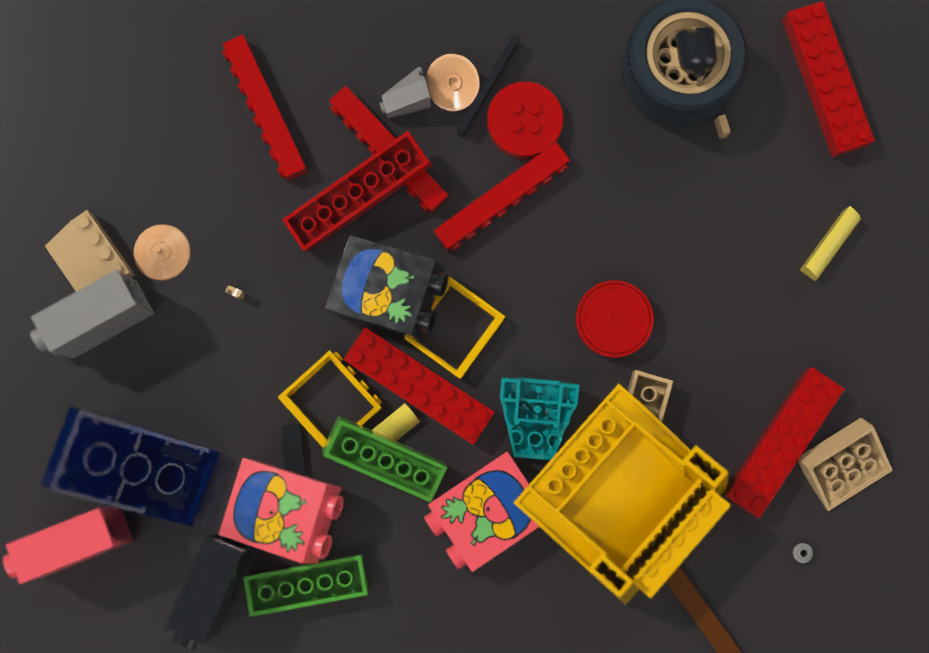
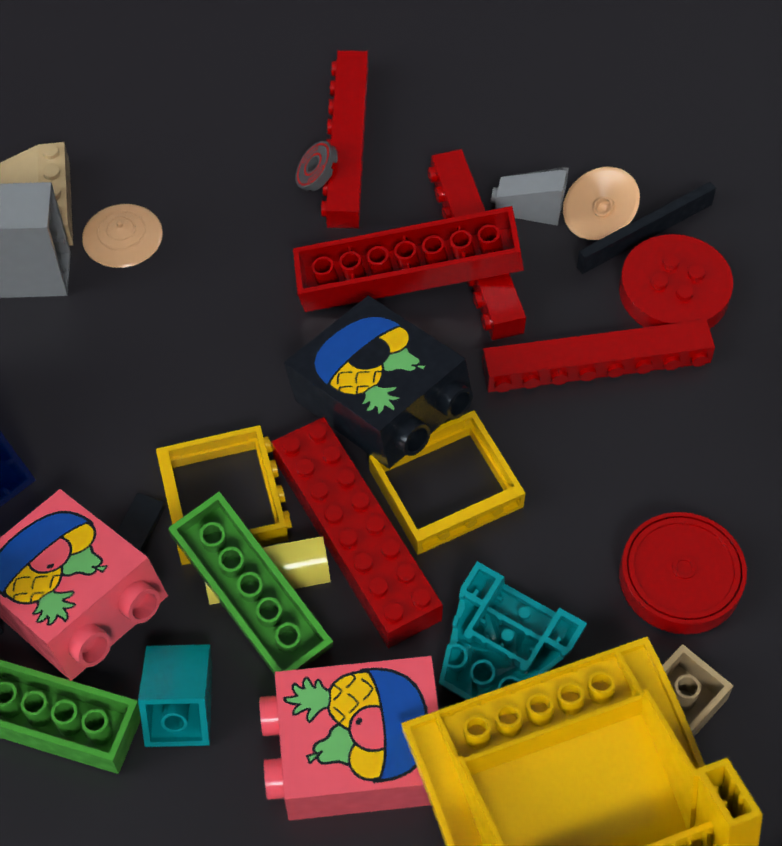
camera: 30 degrees right, 25 degrees down
(235, 292) = (183, 313): tan tile -> none
(251, 142) = (316, 166): none -> dark grey tile
(375, 534) = (176, 695): none -> teal slope

